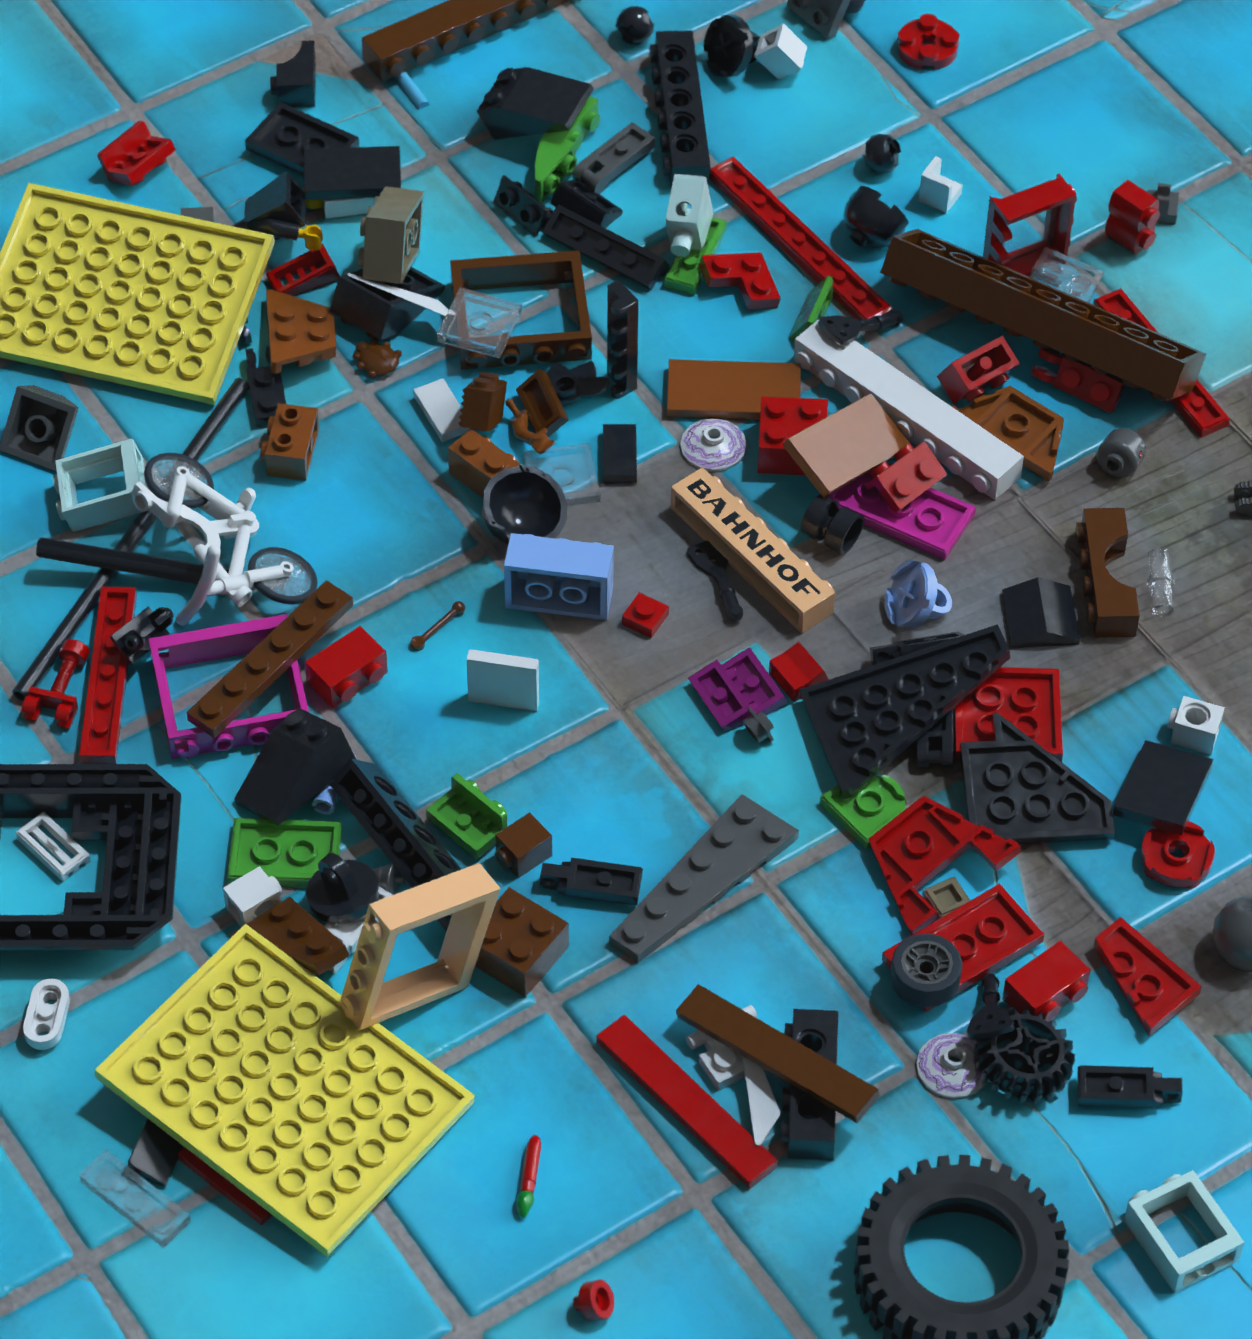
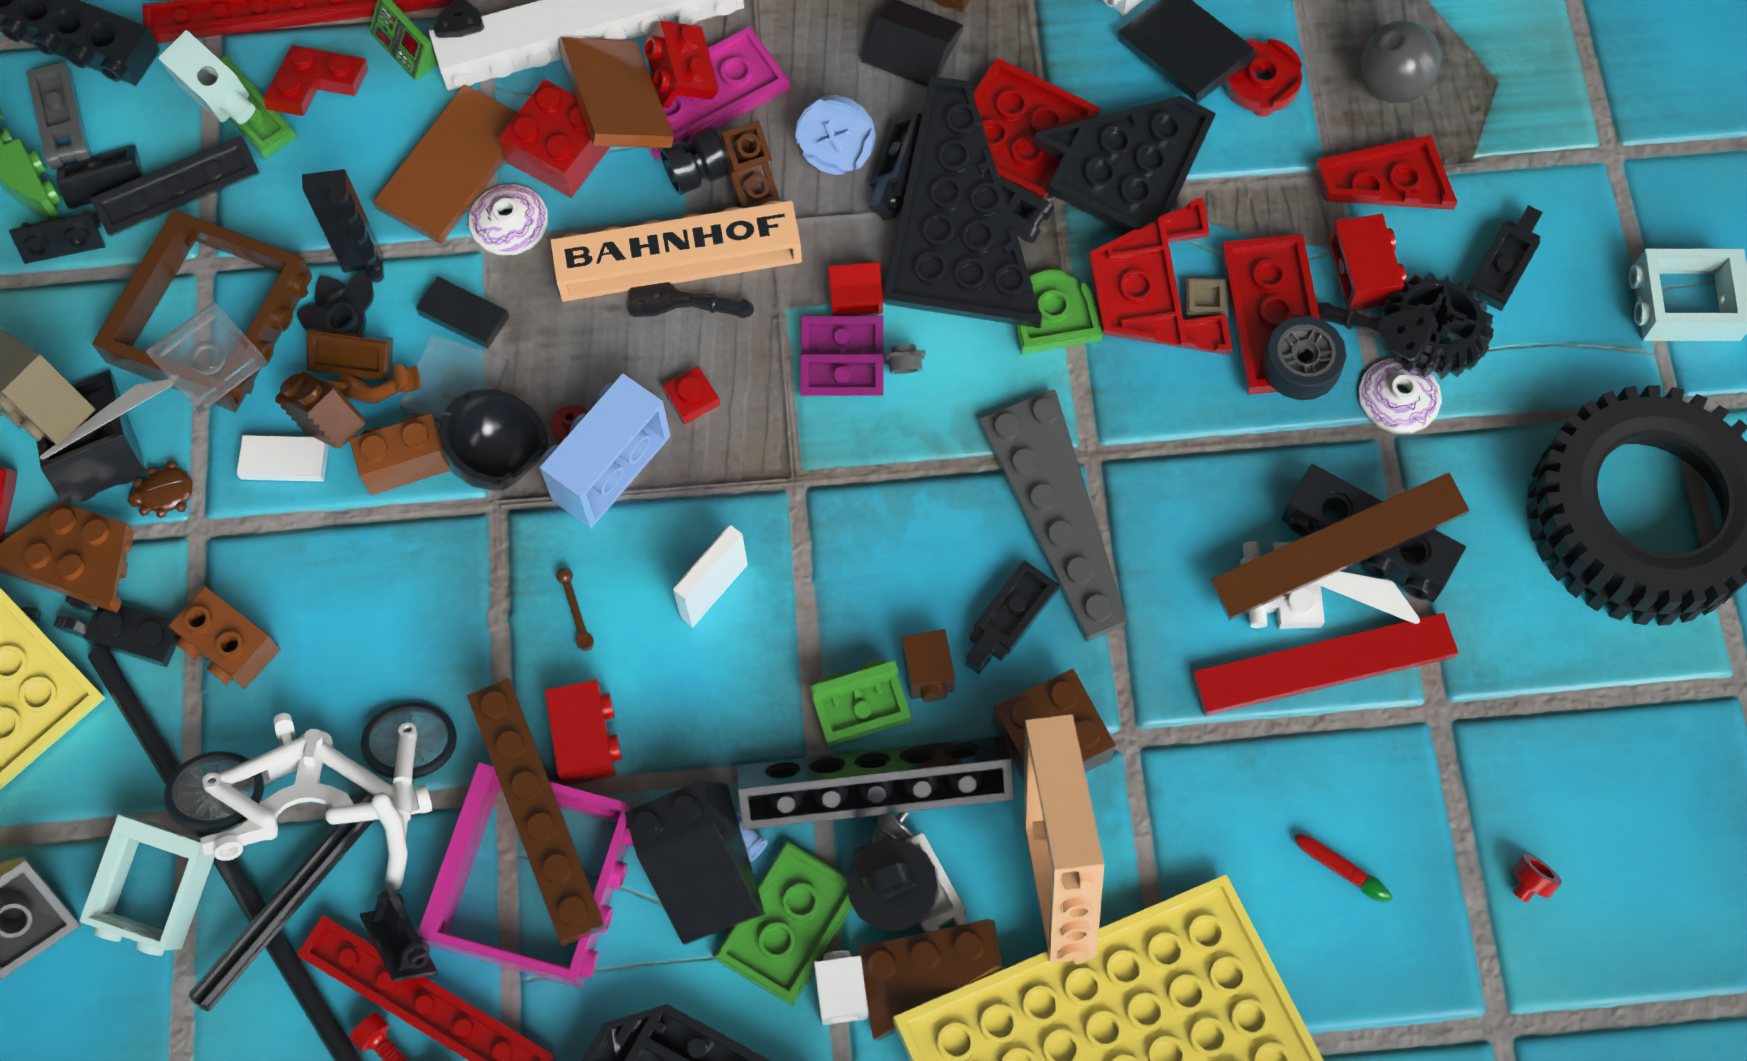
camera: 60 degrees left, 15 degrees up
(846, 555) = (748, 166): none -> reddish brown slope

